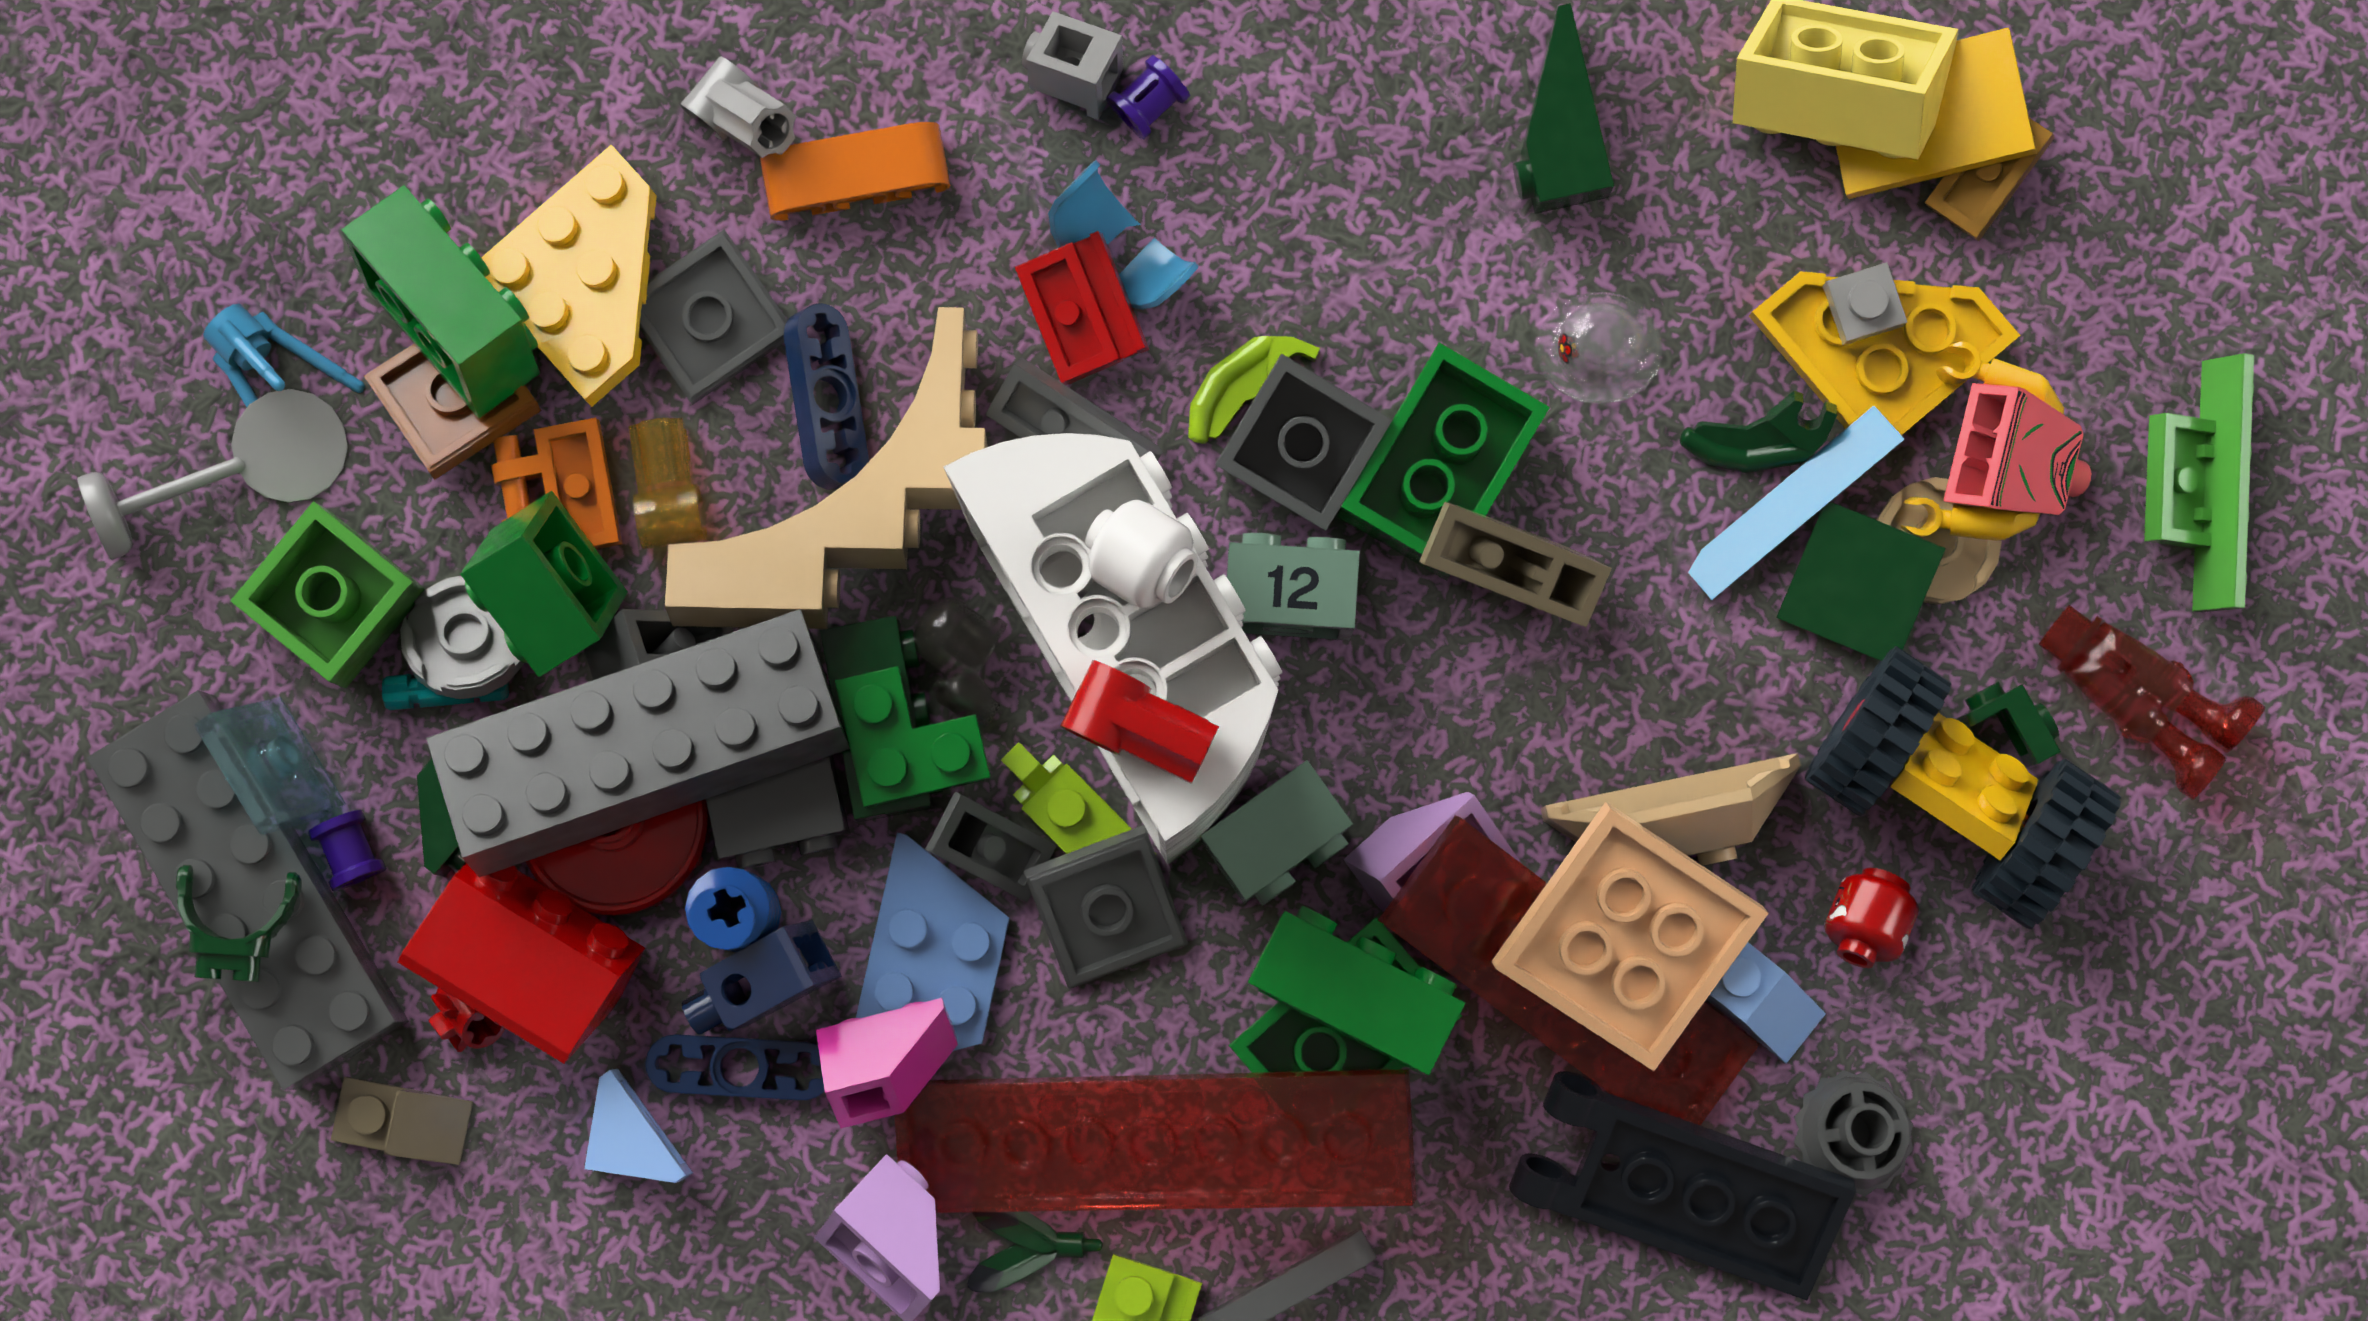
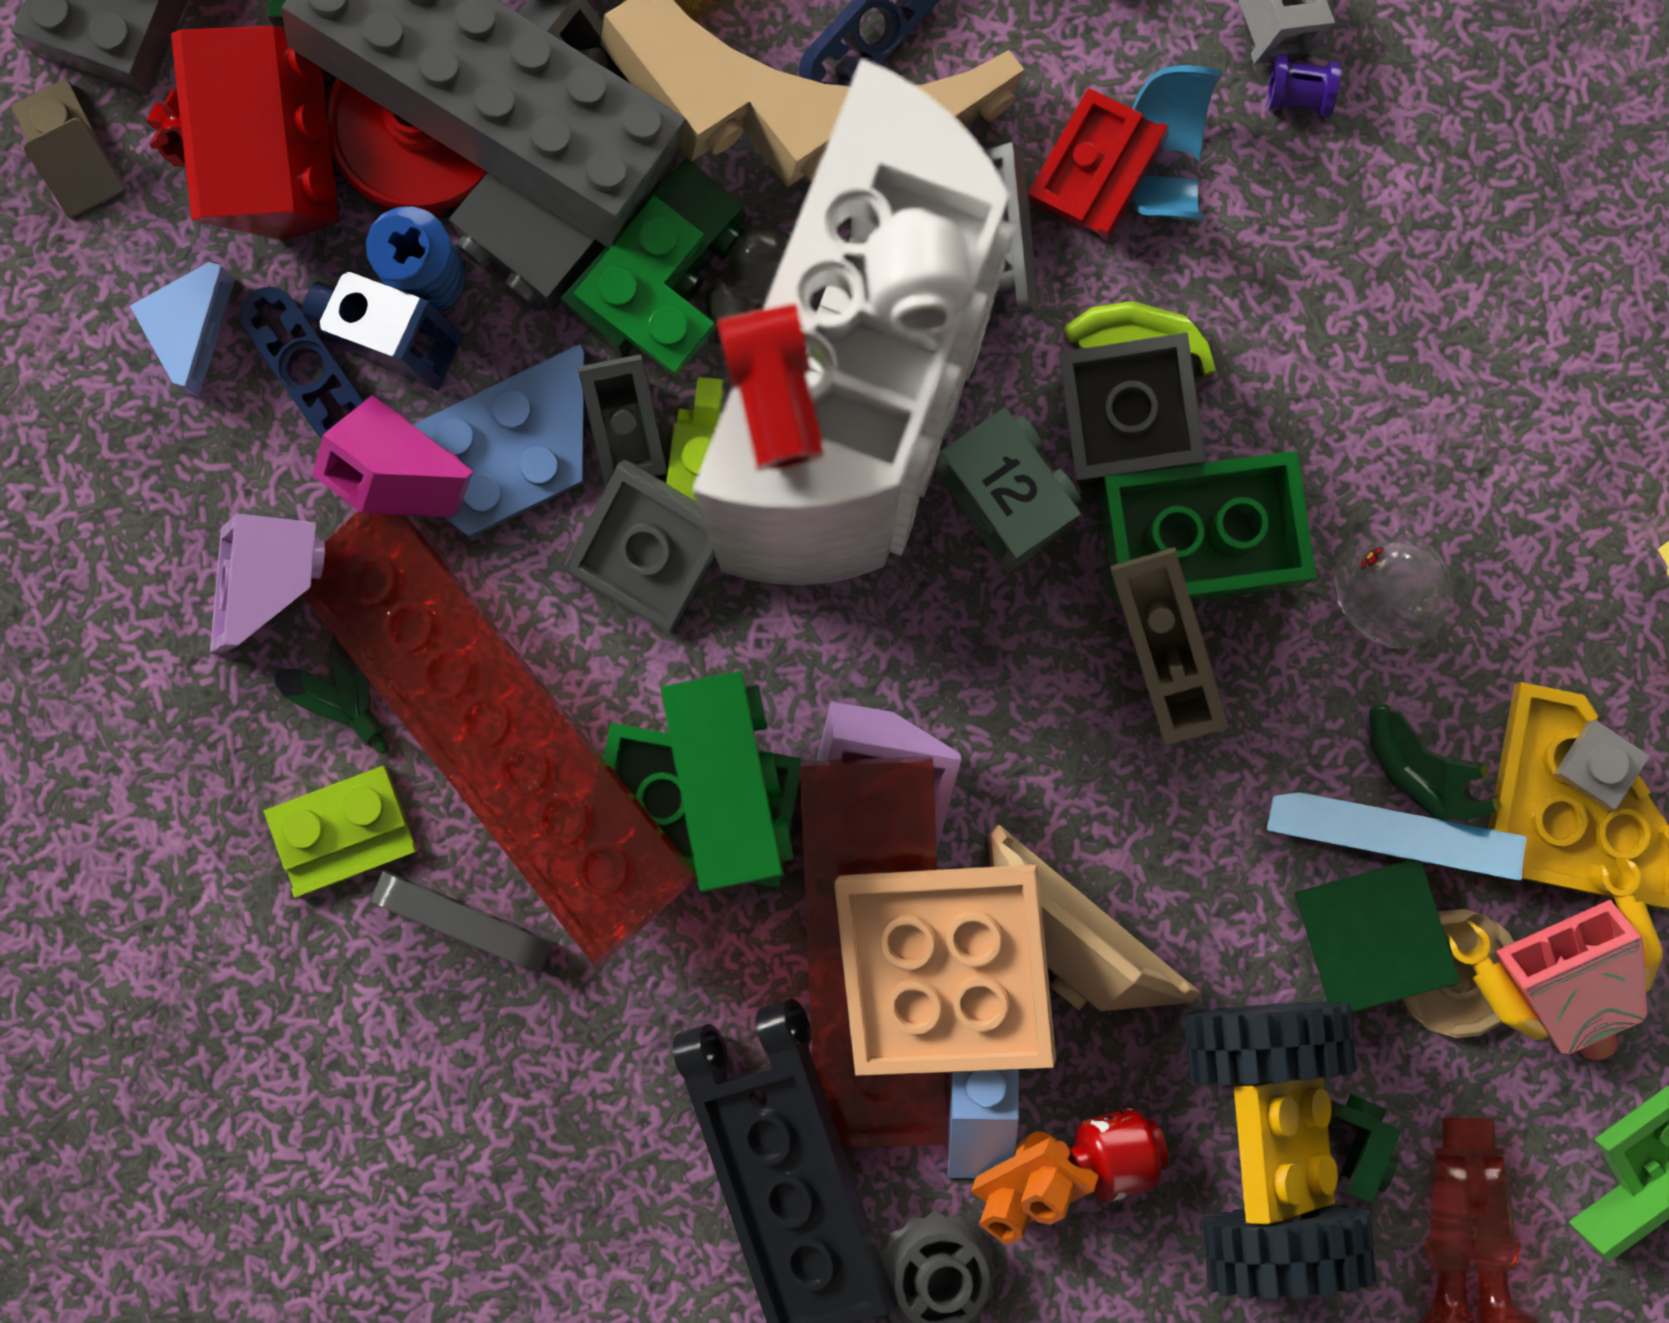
camera: 50 degrees right, 0 degrees up
(1277, 833) = (806, 631): sand green brick -> none
(1563, 141) = (1534, 428): dark green slope -> none
(1843, 1004) = (1031, 1187): none -> orange hips

